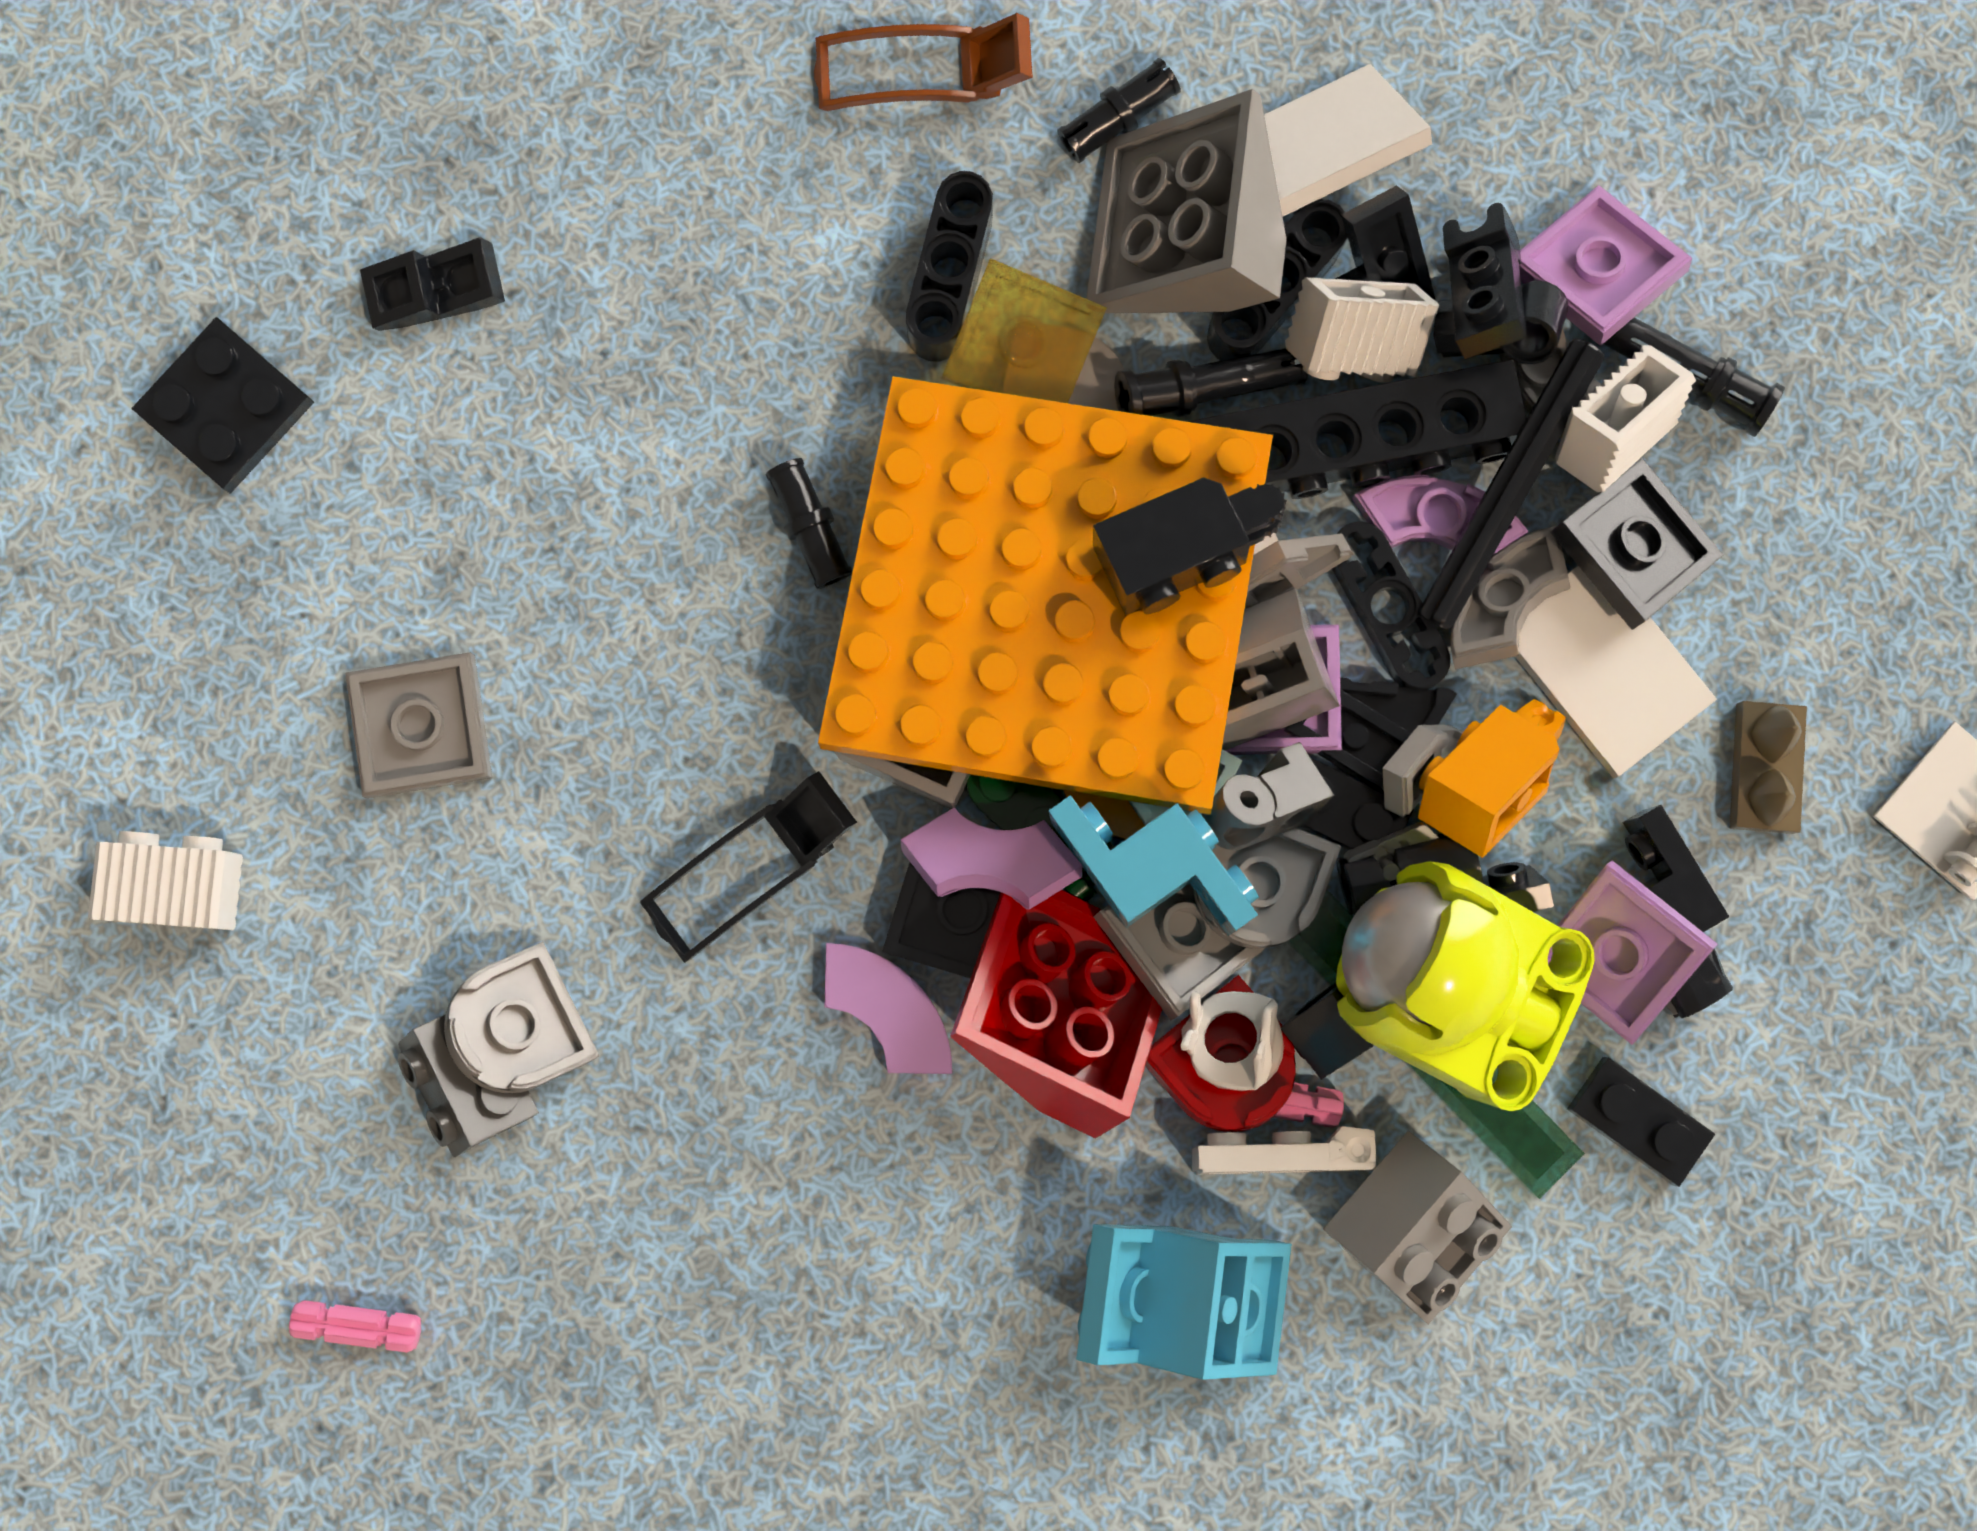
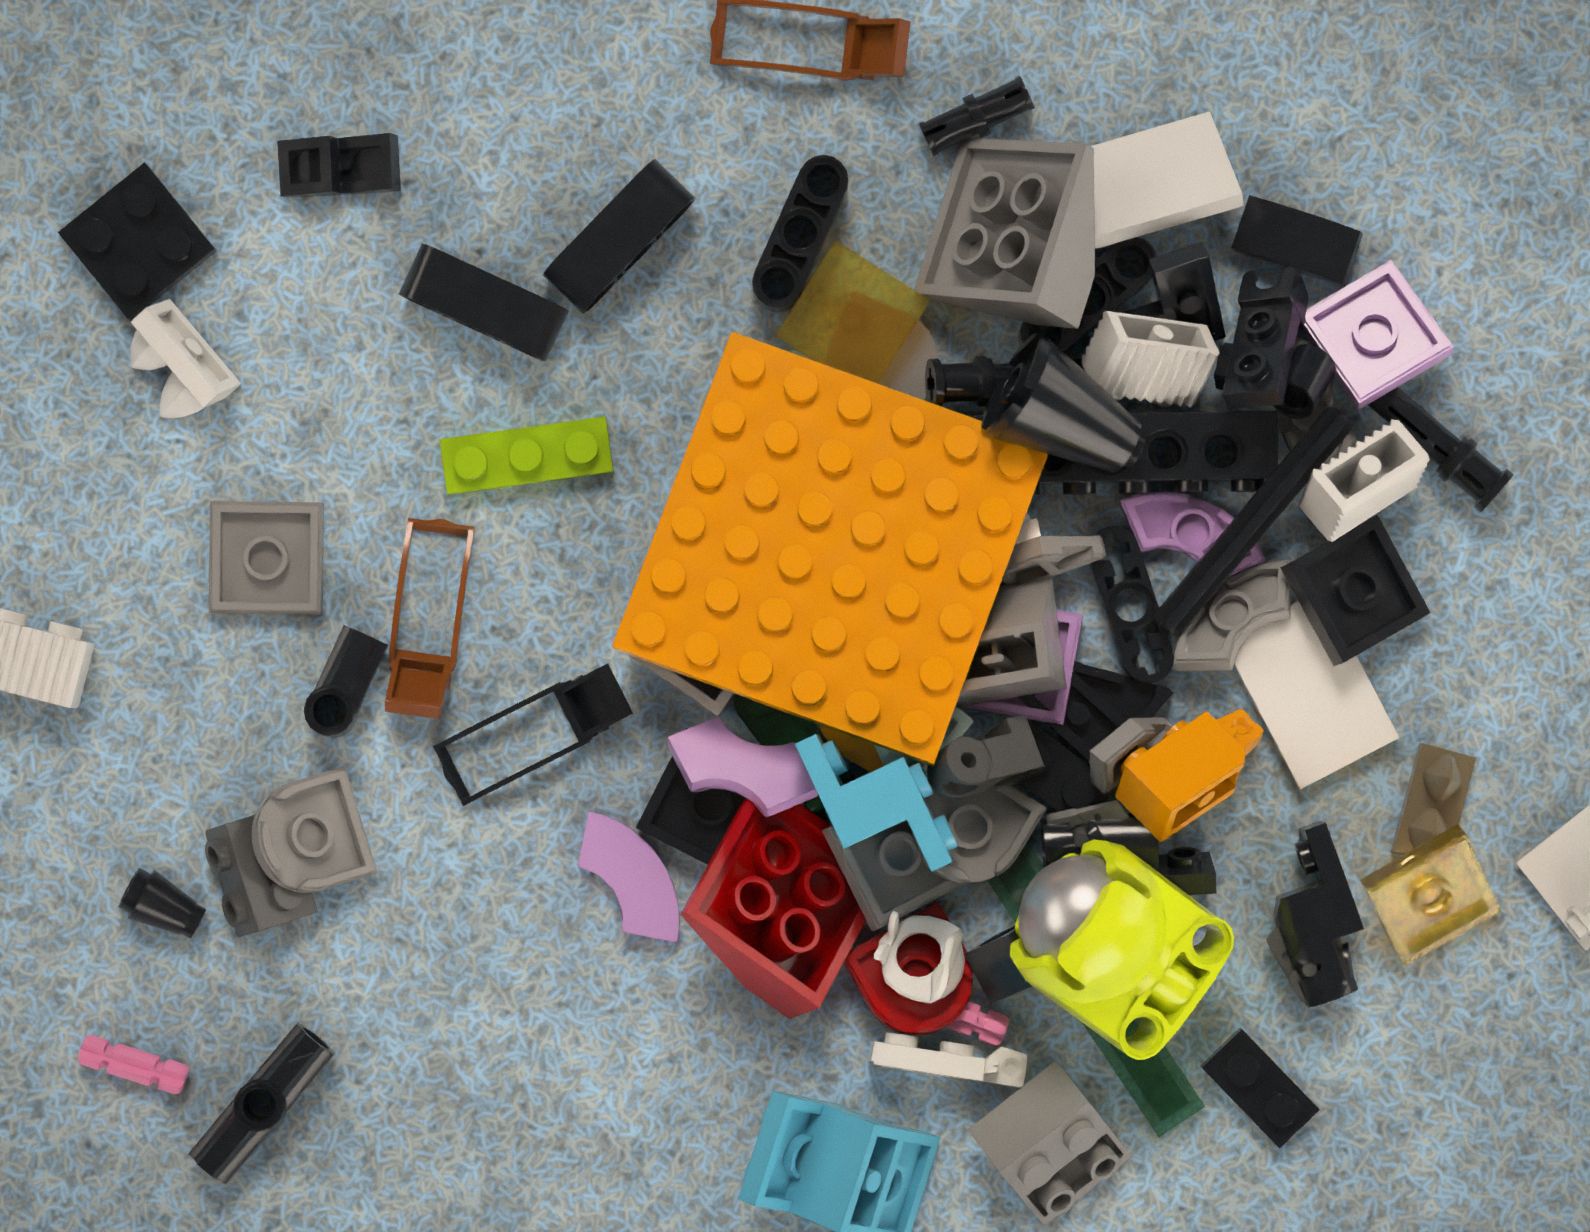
camera: 10 degrees right, 5 degrees up
(309, 533) = (197, 374): none -> white tile
(357, 1135) = (160, 904): none -> black cone
(486, 1377) = (240, 1131): none -> black piece
(527, 839) = (346, 676): none -> black piece
(609, 830) = (417, 678): none -> dark orange piece
(614, 401) = (483, 302): none -> black beam
(690, 562) = (526, 455): none -> lime plate
(751, 304) = (619, 236): none -> black beam
(809, 523) = (636, 441): black pin -> none
(1183, 541) = (952, 533): black hinge -> none
(1278, 391) = (1061, 411): none -> black cone
(1480, 175) = (1297, 240): none -> black slope
(1639, 950) = (1276, 942): lavender tile -> none
(1793, 866) = (1430, 895): none -> clear yellow plate

